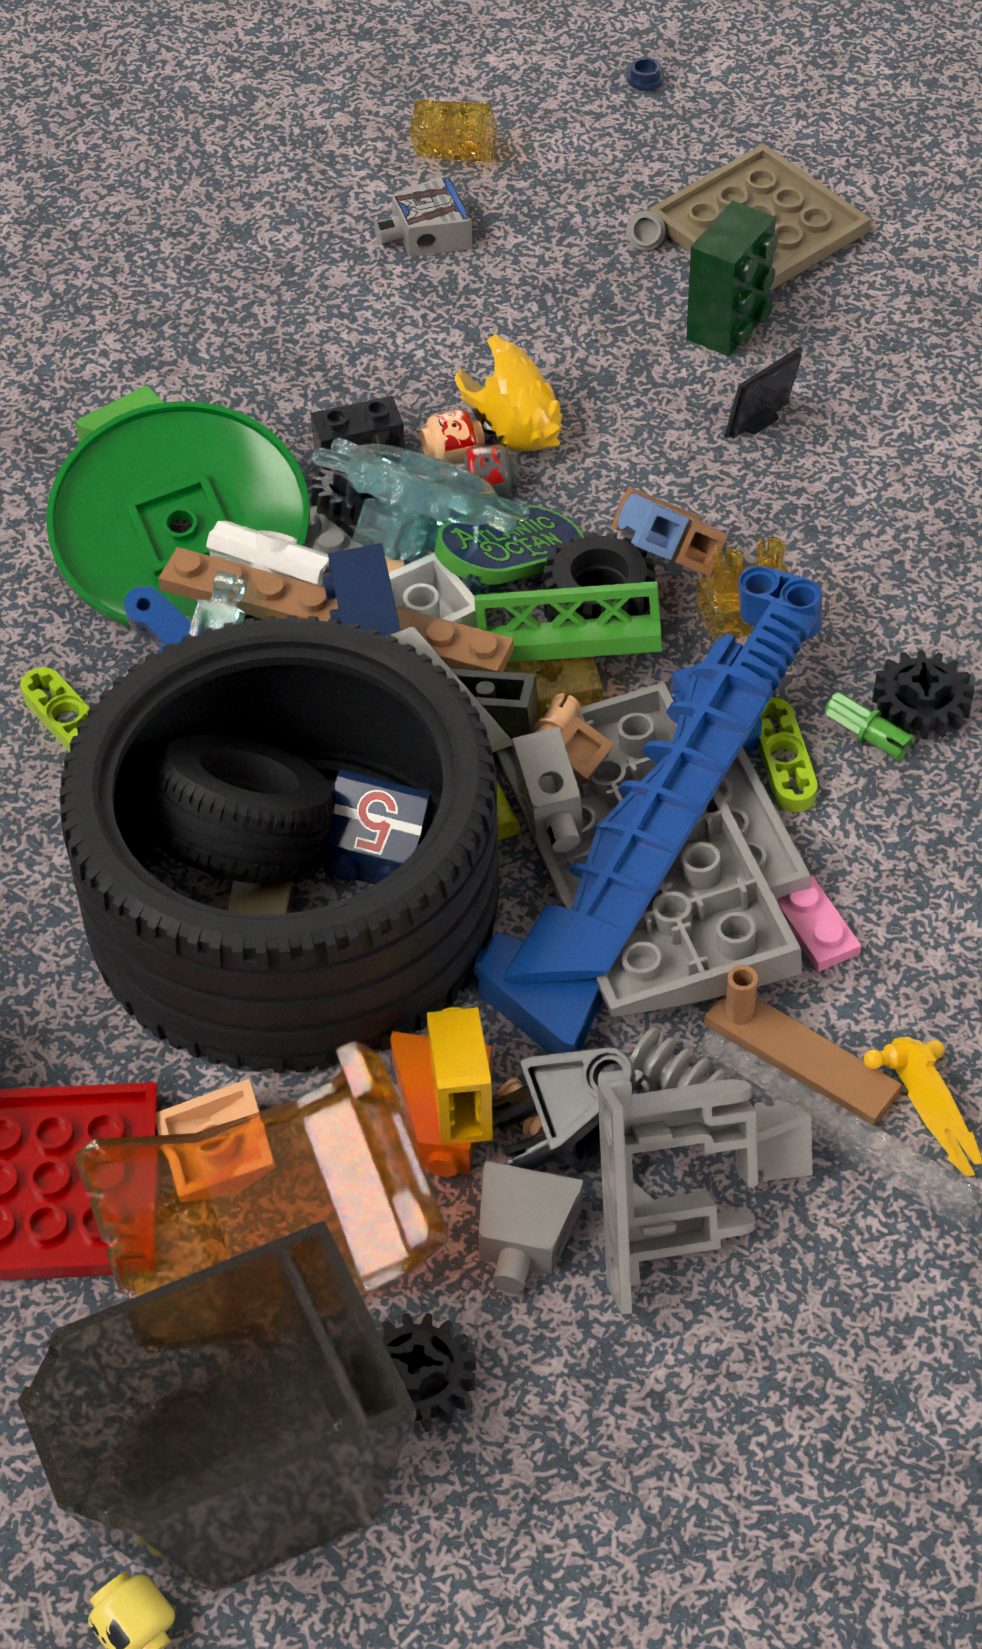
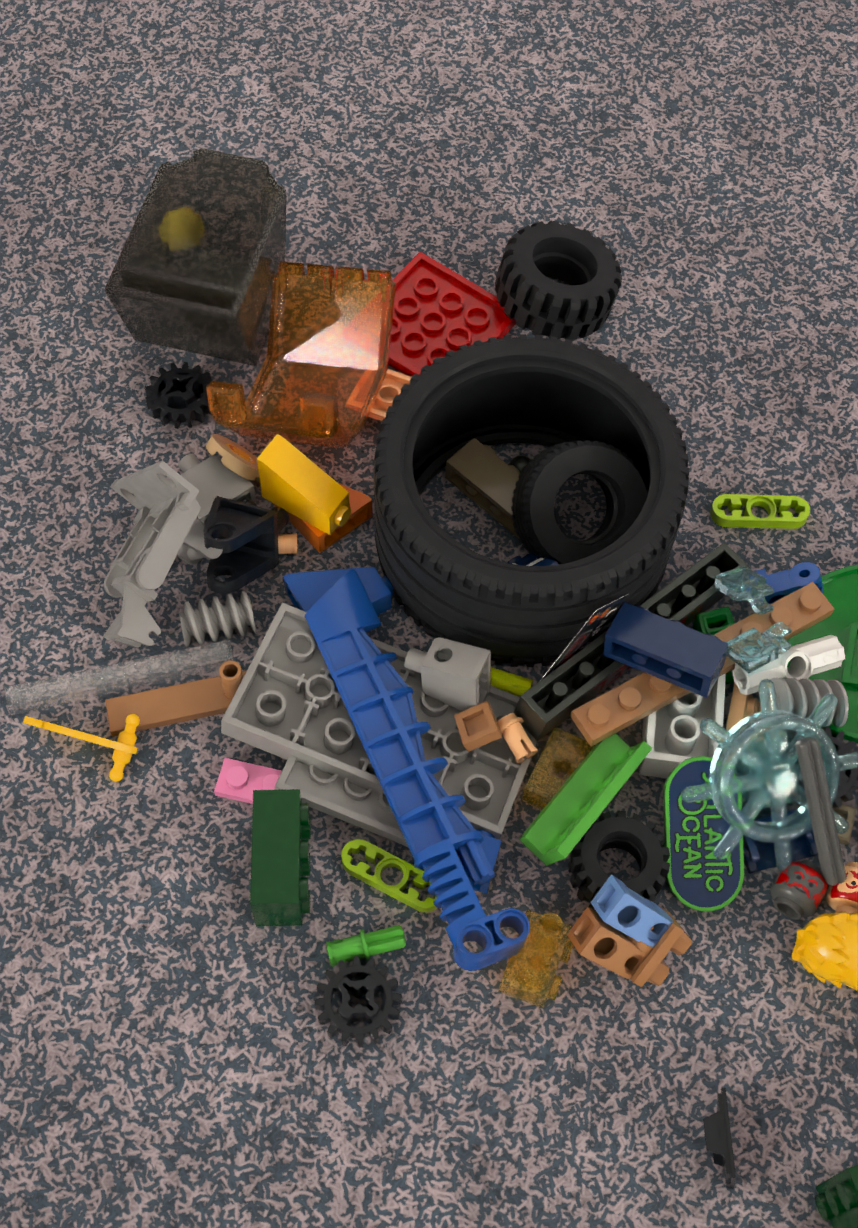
camera: 125 degrees right, 10 degrees up
(297, 558) = (757, 649): none -> clear light blue plate
(313, 512) = (804, 695): none -> light grey piece
(428, 443) = (820, 810): none -> dark grey axle
(466, 1212) = (234, 457): none -> tan tile
(875, 818) = (280, 858): none -> dark green brick

